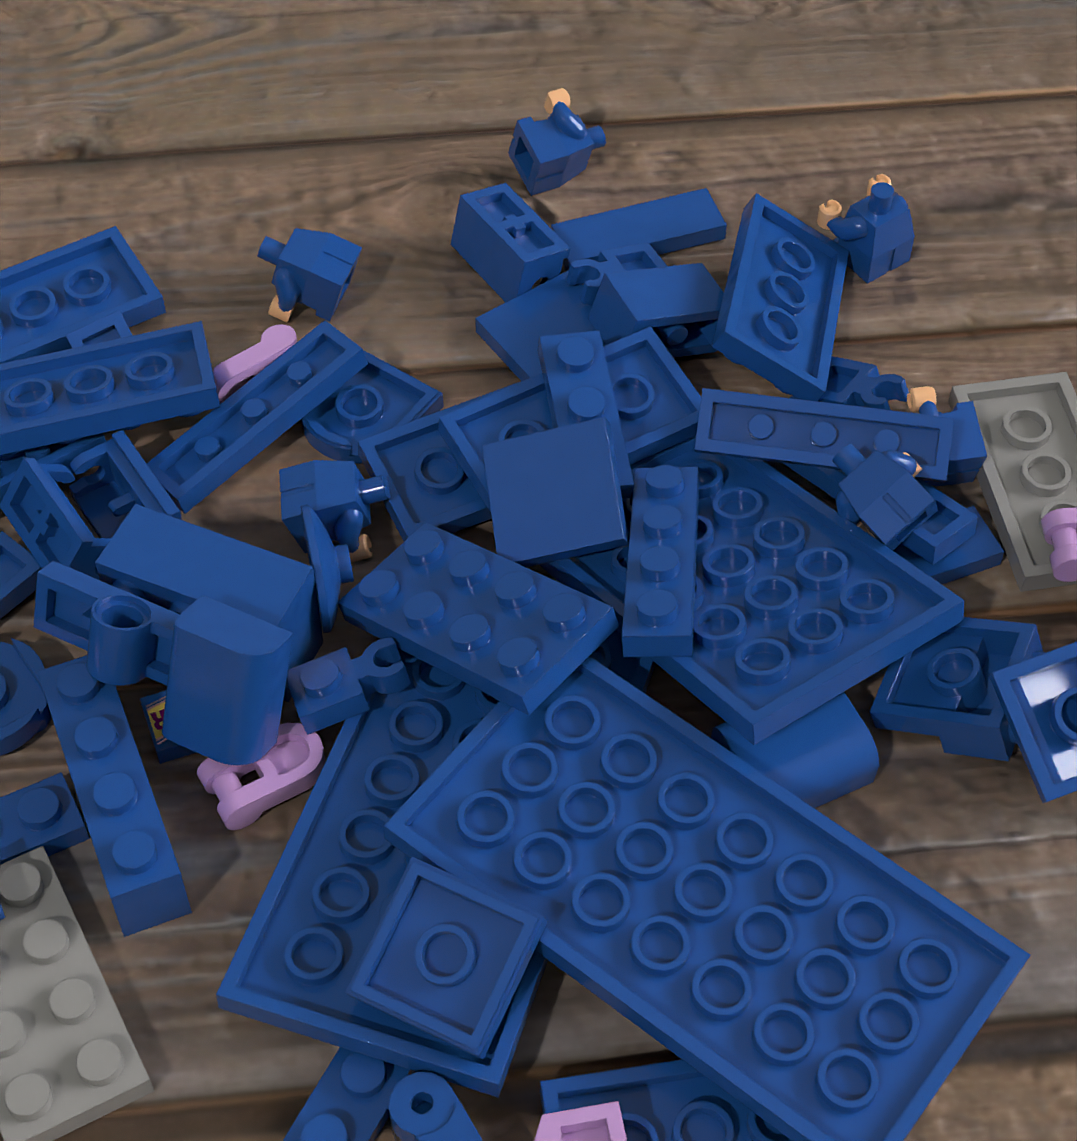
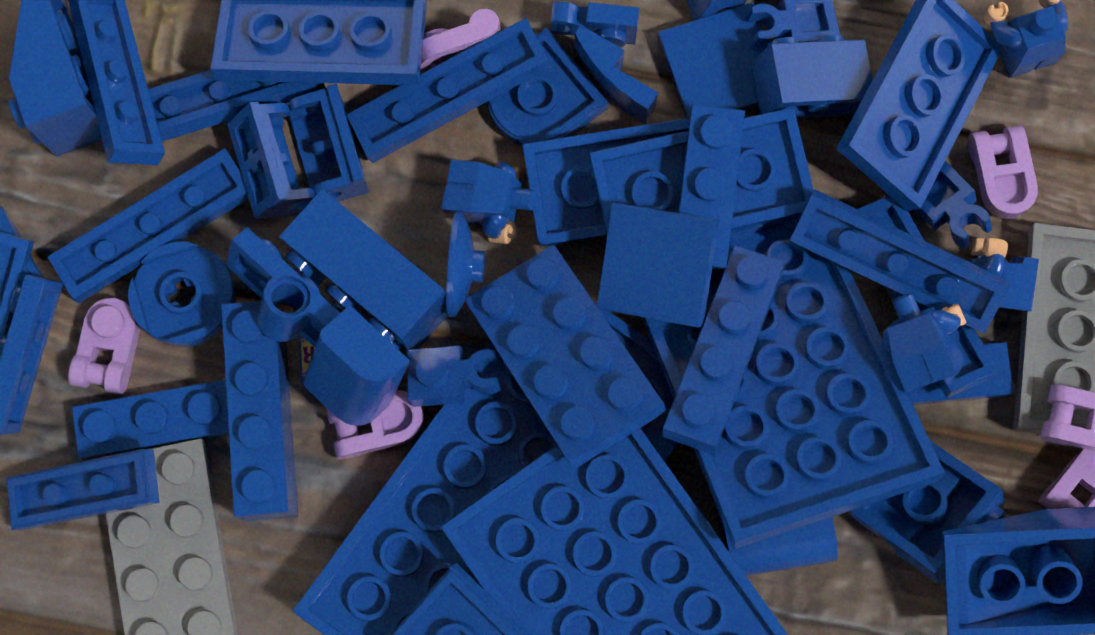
camera: 20 degrees right, 25 degrees up
(412, 321) = (609, 21): none -> blue plate
(422, 353) = (604, 65): none -> blue slope
(908, 356) = (1005, 188): none -> lavender plate

